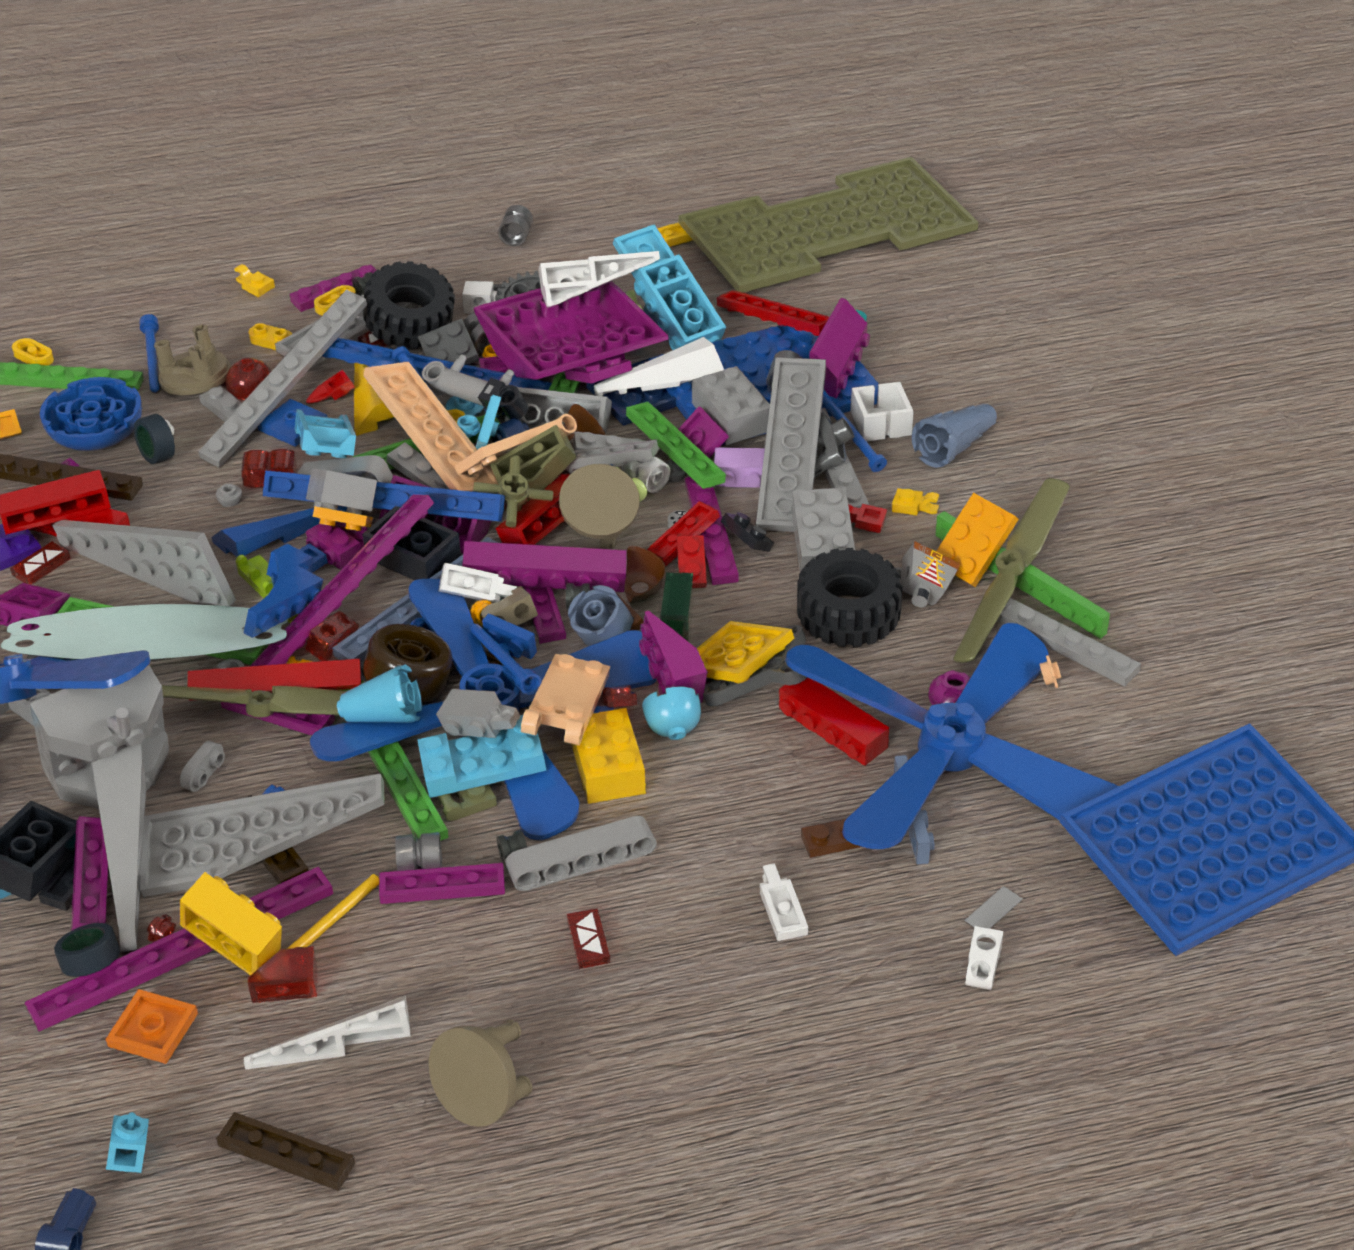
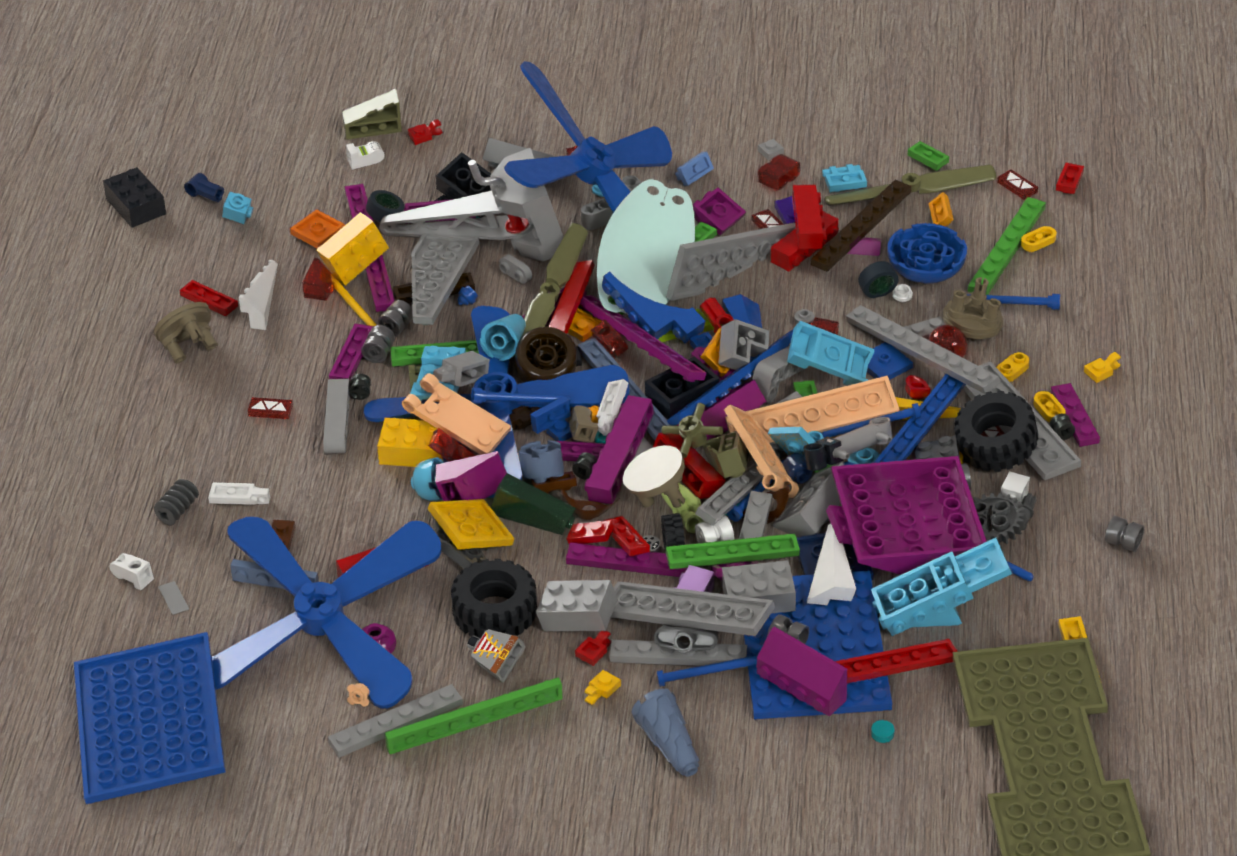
camera: 110 degrees right, 0 degrees up
(160, 928) = (389, 238): clear red plate -> none
(261, 547) = (715, 313): none -> red piece
(286, 1151) = (198, 265): dark brown plate -> none
(355, 852) = (396, 316): none -> flat silver wheel
(359, 1110) = (215, 300): none -> red tile
(571, 278) = (960, 518): white wedge -> none
(662, 484) = (672, 530): none -> black tyre
(751, 535) = (615, 571): black plate -> none
(836, 957) = (176, 501): none -> dark grey piece
(890, 417) = (717, 691): white piece -> none
(977, 537) = (515, 685): light orange plate -> none
(1020, 552) = (477, 703): olive piece -> none

